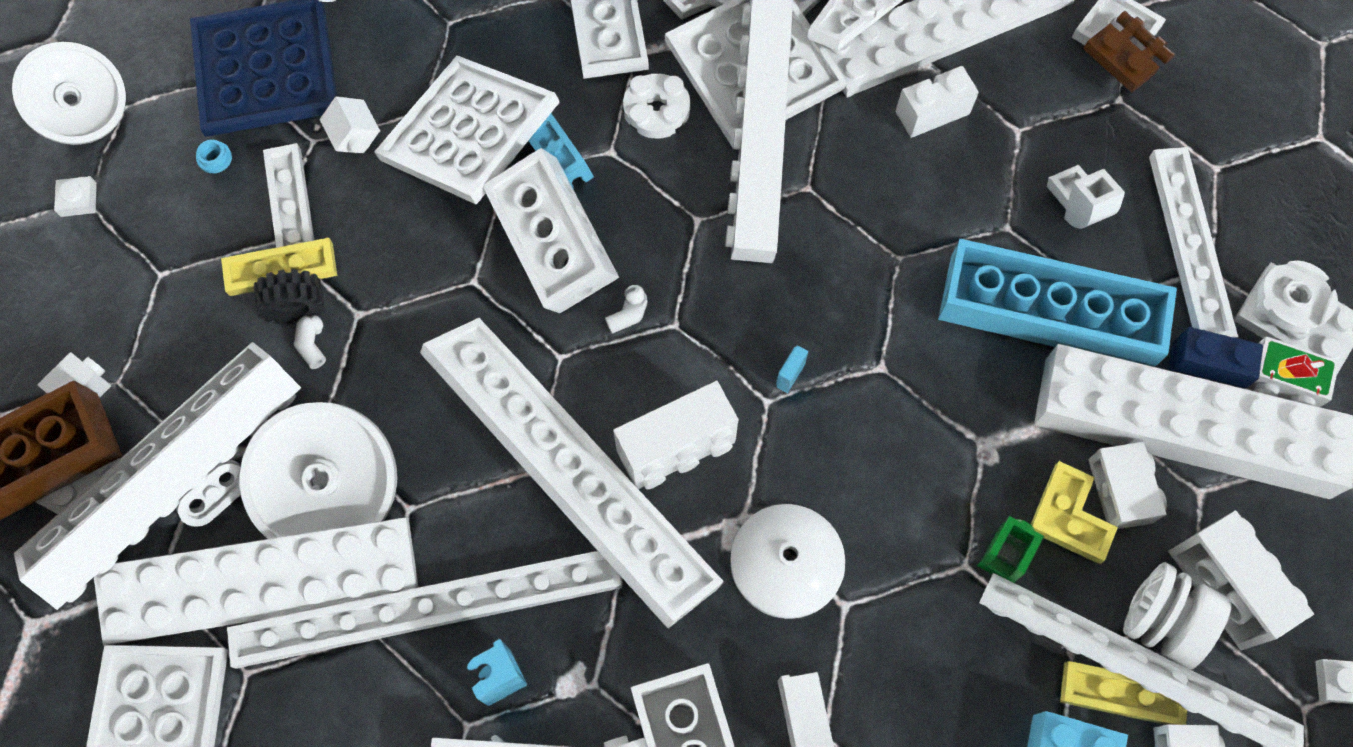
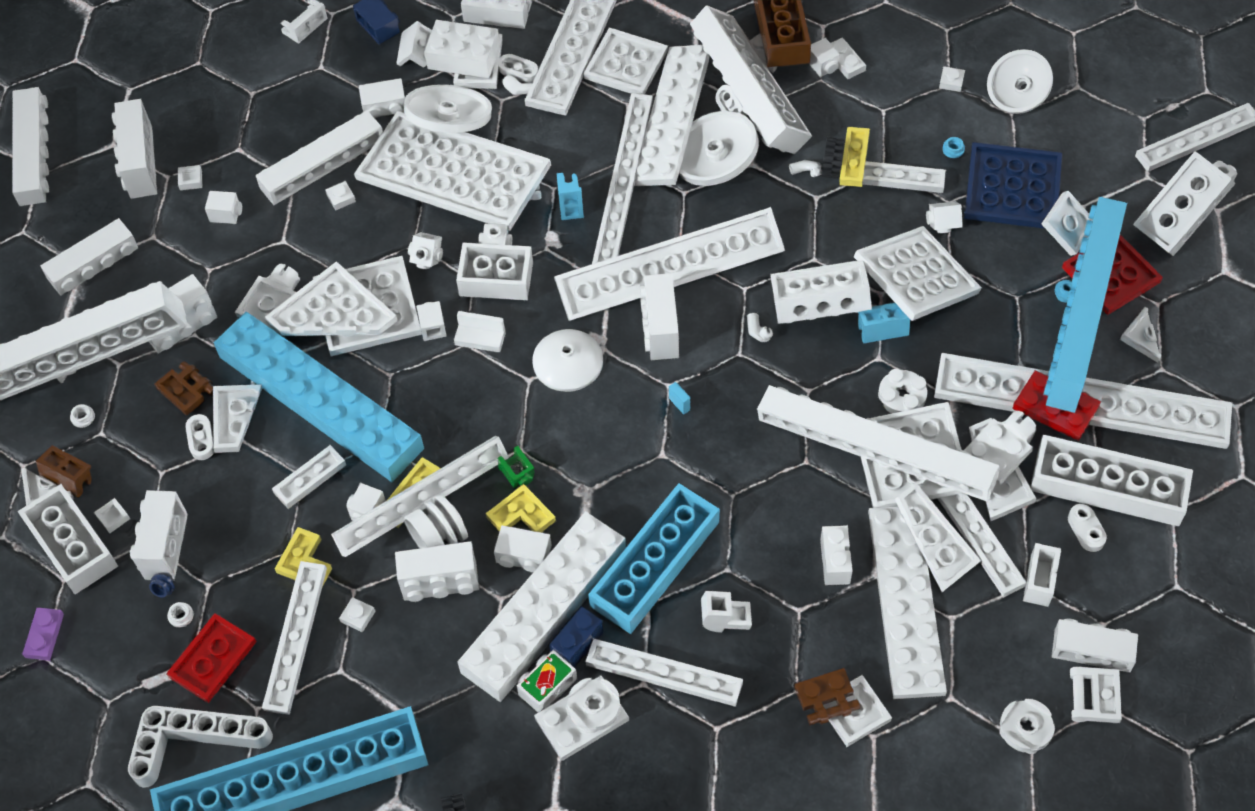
camera: 115 degrees right, 10 degrees down
(73, 339) = (849, 62): none -> white plate

